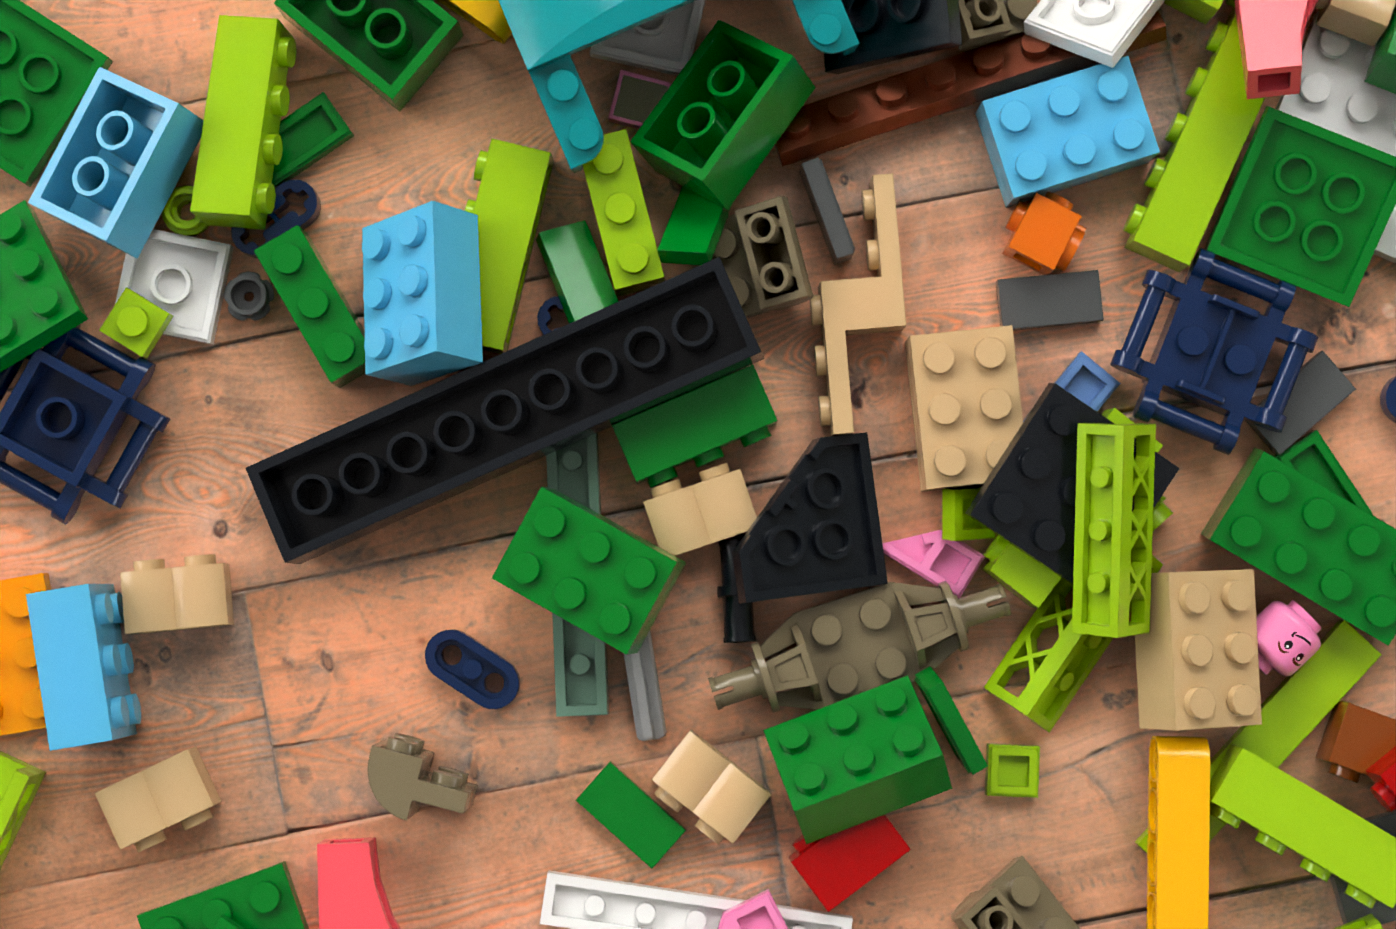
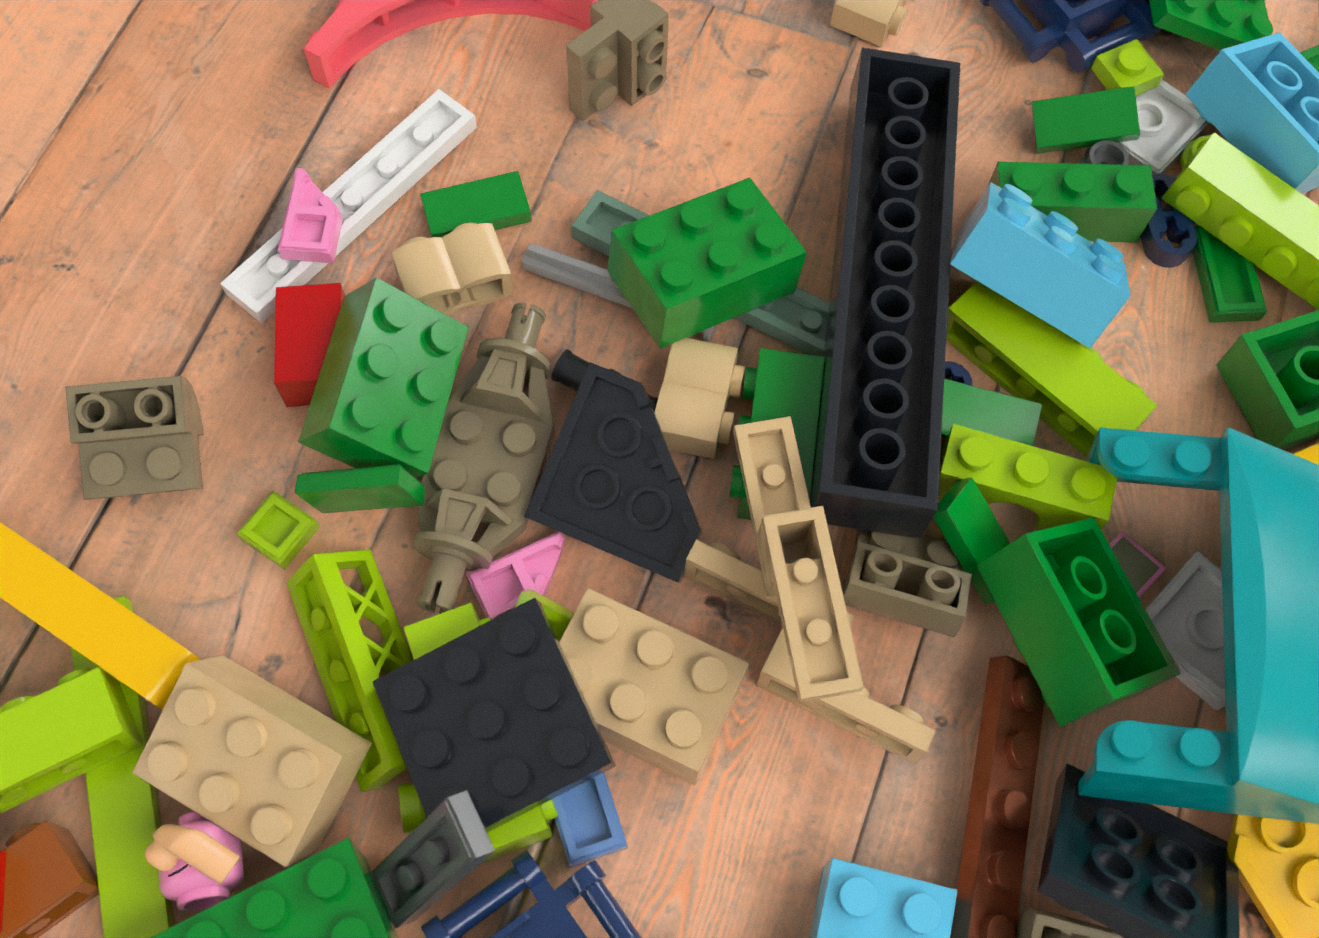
camera: 120 degrees right, 20 degrees down
(216, 334) = (1085, 119): none -> green tile
(473, 669) = (676, 156): dark blue plate -> none
(818, 344) = (797, 561): none -> tan bracket
(827, 210) = (921, 674): dark grey tile -> none
(1044, 233) = (774, 881): orange brick -> none
(1050, 300) = (699, 848): dark grey tile -> none
(1109, 529) = (423, 715): lime fence -> none
(1190, 469) = (432, 859): none -> dark grey tile
(1288, 651) = (194, 848): none -> light nougat arm

